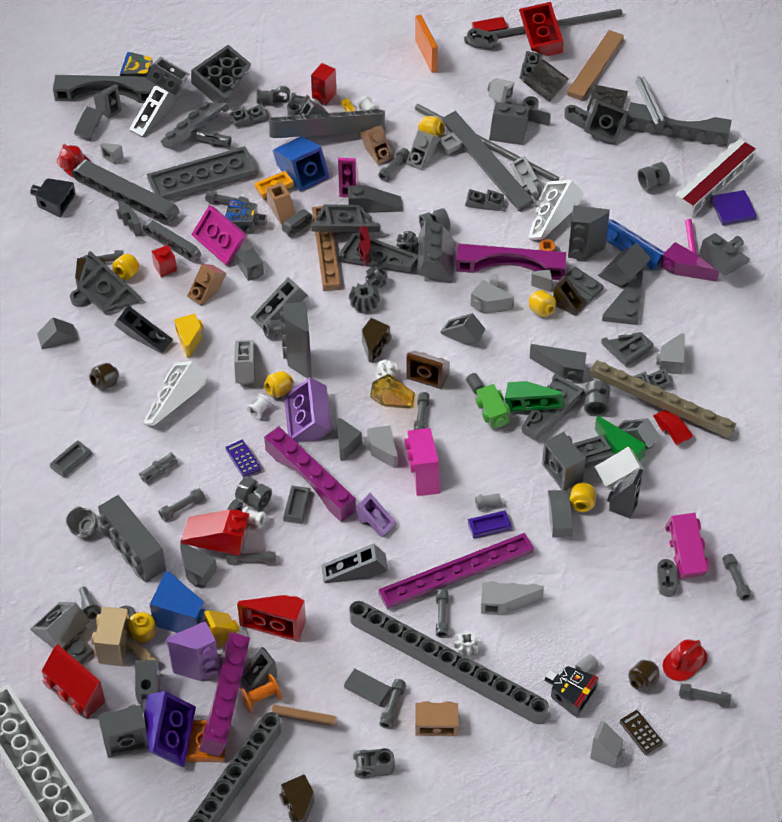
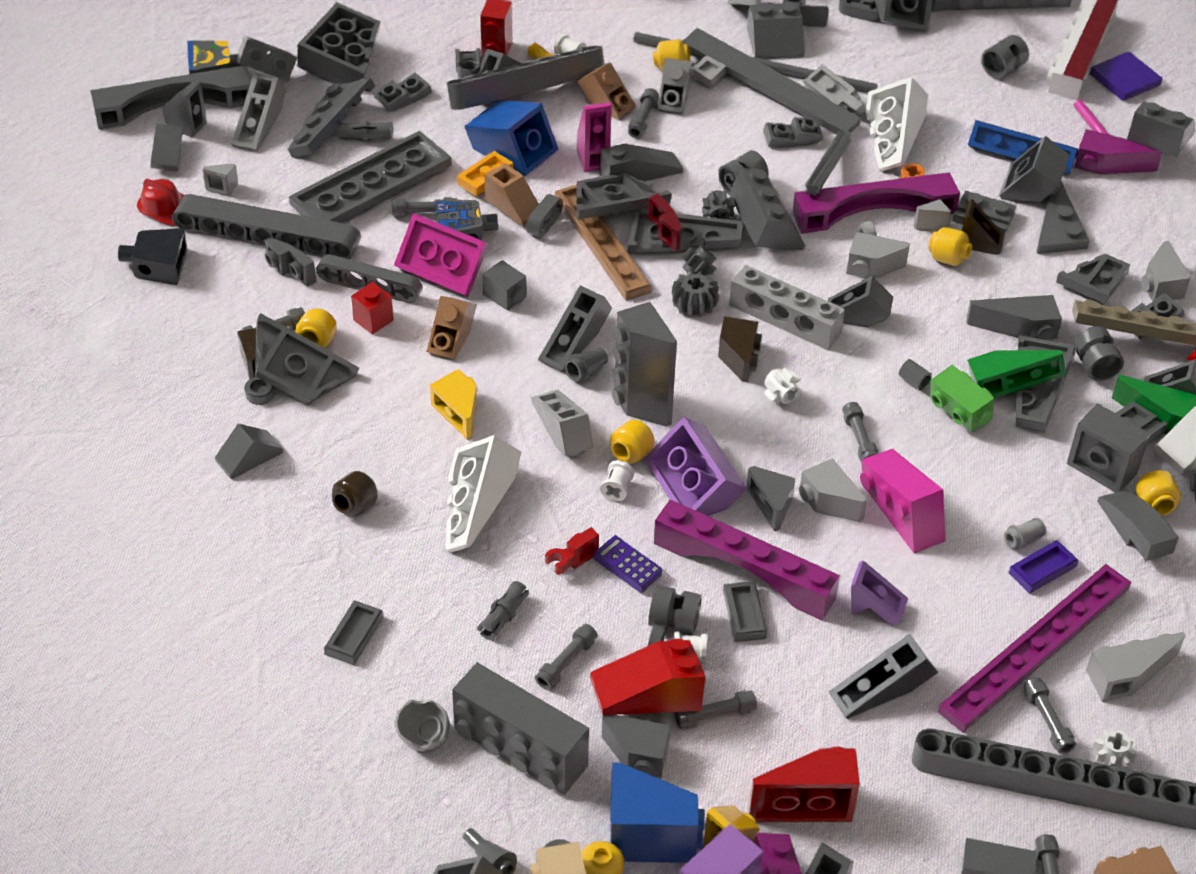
camera: 20 degrees left, 5 degrees down
(142, 330) = (383, 412): black slope -> none
(215, 443) = (578, 551): none -> red plate
(273, 95) = (425, 61): dark grey connector -> none
(392, 393) = (804, 414): clear yellow slope -> none
(416, 320) = (786, 307): none -> light grey brick
(427, 369) = (840, 370): reddish brown slope -> none
(491, 227) = (827, 163): none -> dark grey axle
(587, 231) = (967, 136): dark grey slope -> none

